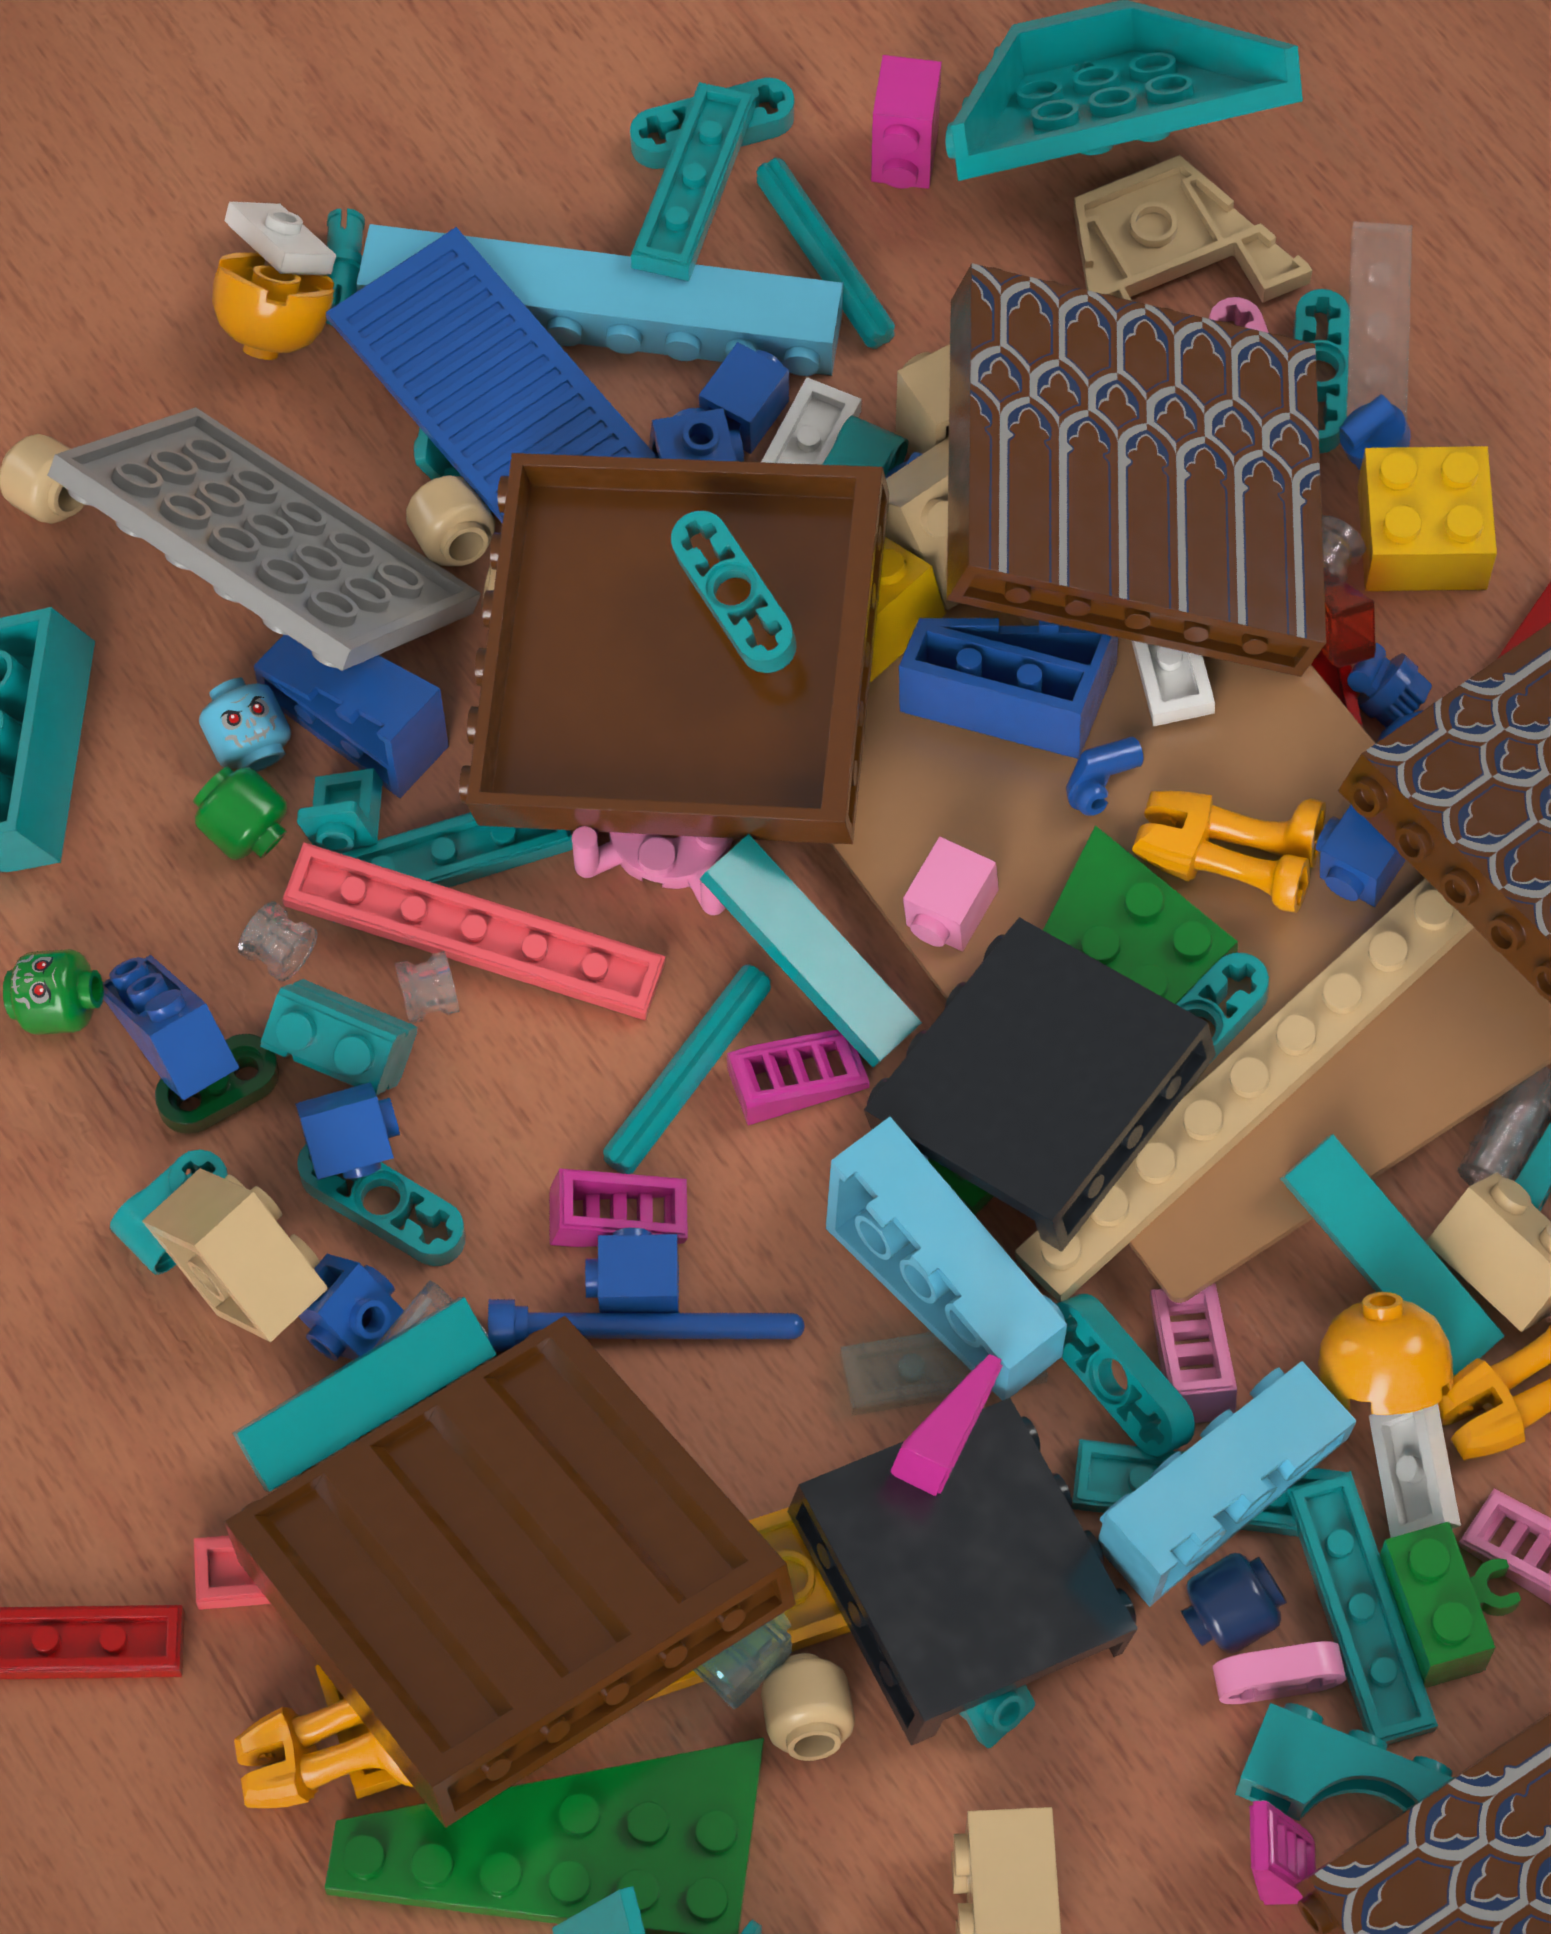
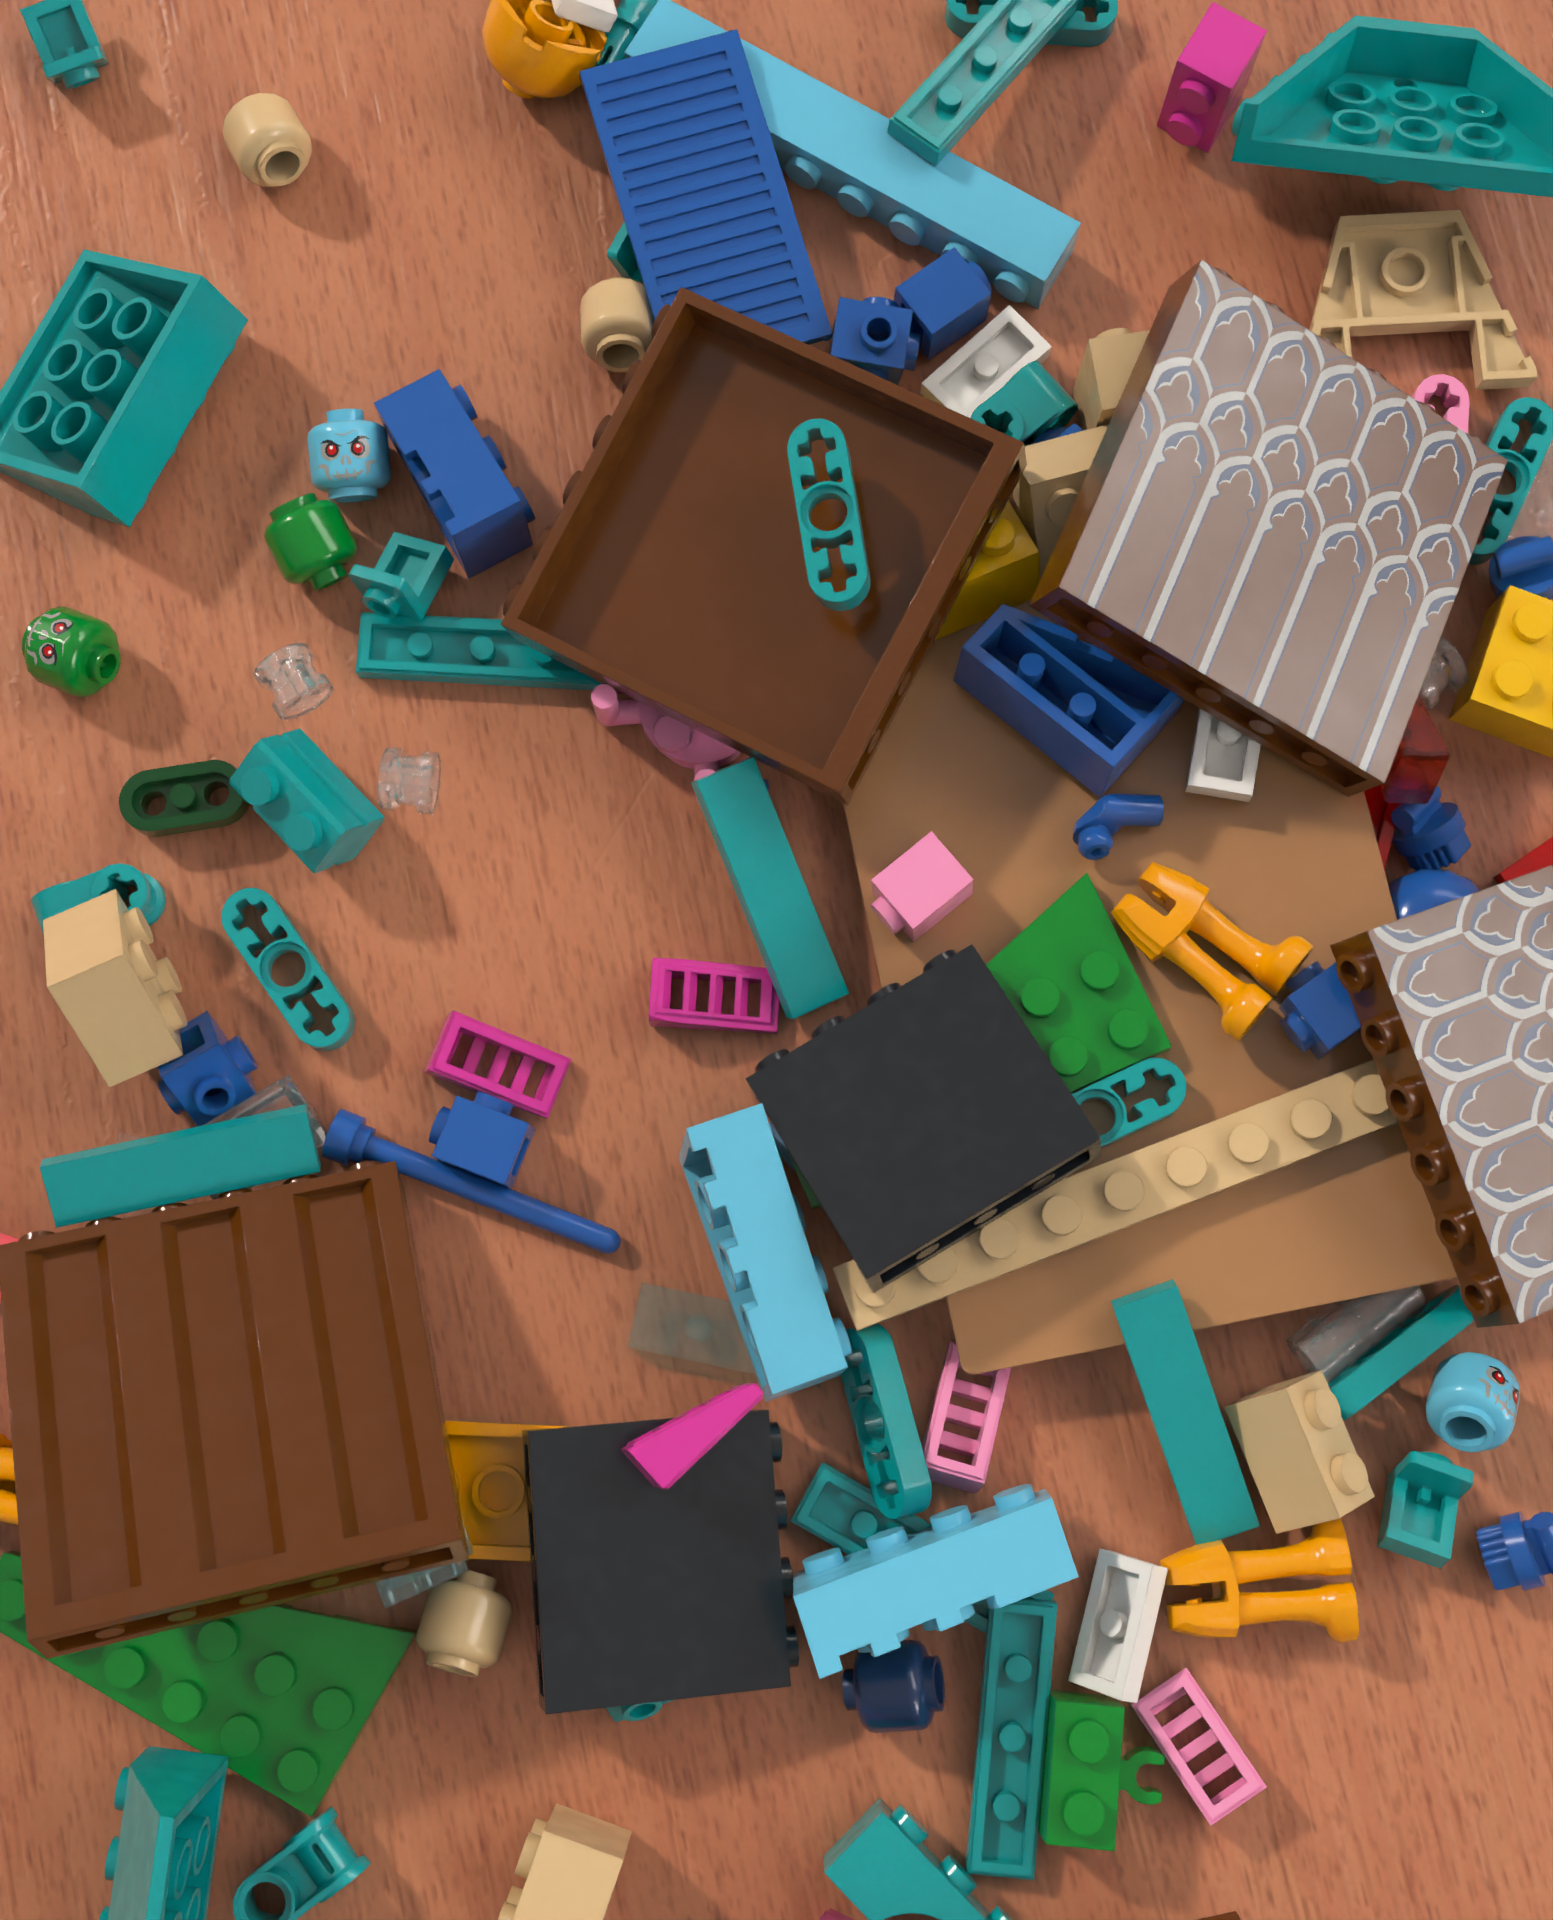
camera: 20 degrees right, 15 degrees up
(169, 1025) = (152, 731): blue slope -> none
(265, 537) = (426, 280): light grey plate -> none
(348, 1131) = (266, 902): blue brick -> none
(474, 931) = (475, 740): coral tile -> none
(687, 1069) = (615, 952): teal axle -> none
(825, 252) = (1082, 182): teal axle -> none
(1279, 1672) = (908, 1769): bright pink beam -> none
(1386, 1356) = (1133, 1518): light orange cylinder -> none

